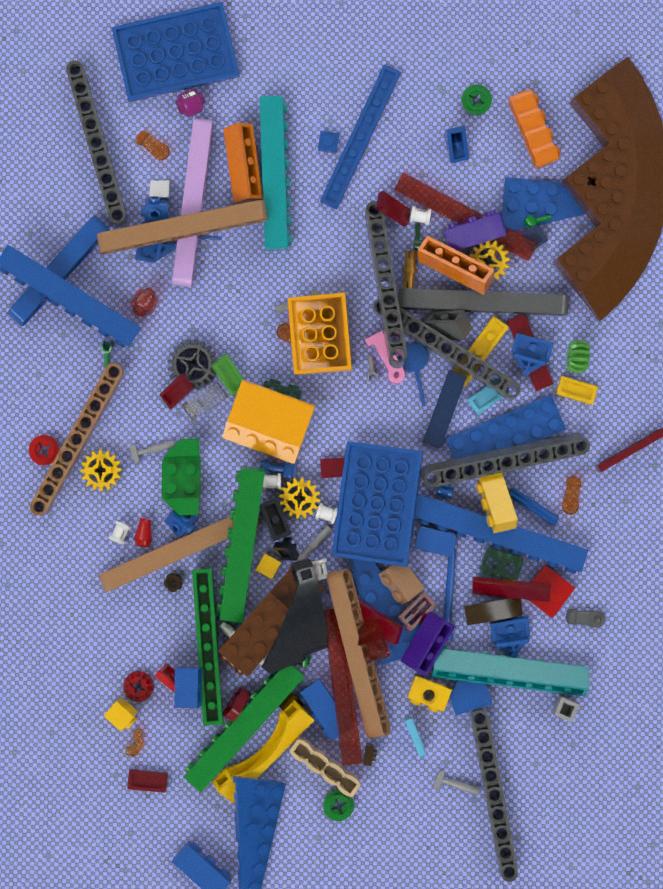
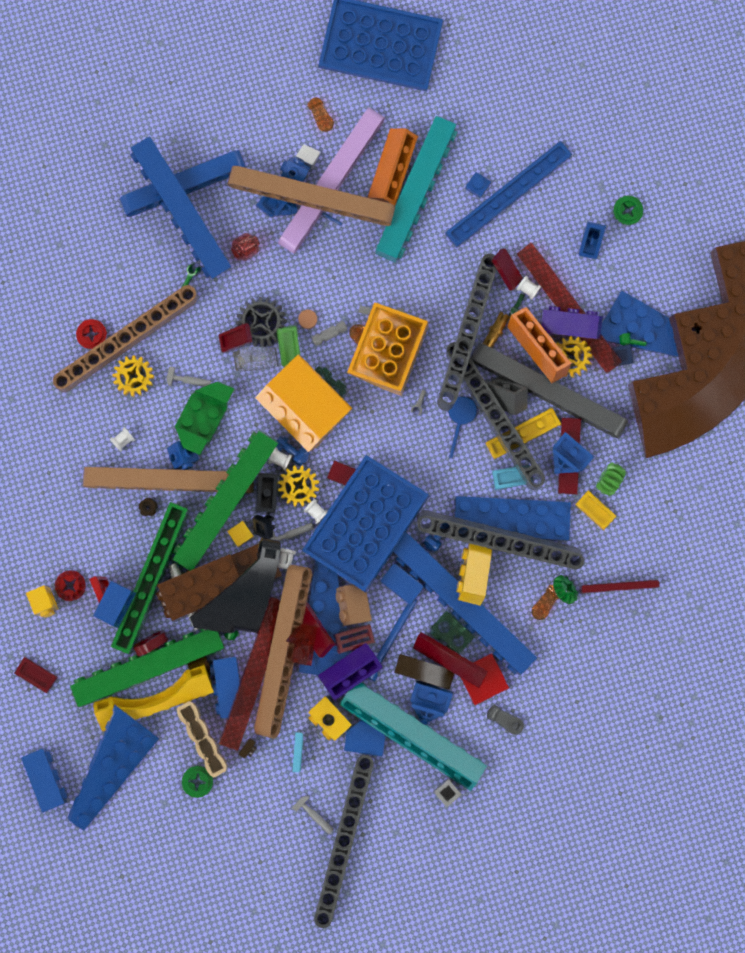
camera: 20 degrees right, 5 degrees down
(96, 134) = (272, 80): dark grey beam -> none
(138, 744) = (42, 638): clear orange arm -> none
(143, 534) = (142, 451): red cone -> none
(190, 102) = (372, 93): magenta head -> none
(233, 341) = (307, 319): none -> nougat tile
(259, 345) = (329, 333): none -> light grey axle
(395, 375) = (438, 417): bright pink leg -> none
(444, 409) = (467, 469): dark blue tile -> none
(533, 129) = (667, 259): orange brick -> none
(533, 506) = (506, 595): blue axle -> none
(580, 472) = (561, 584): none -> green gear

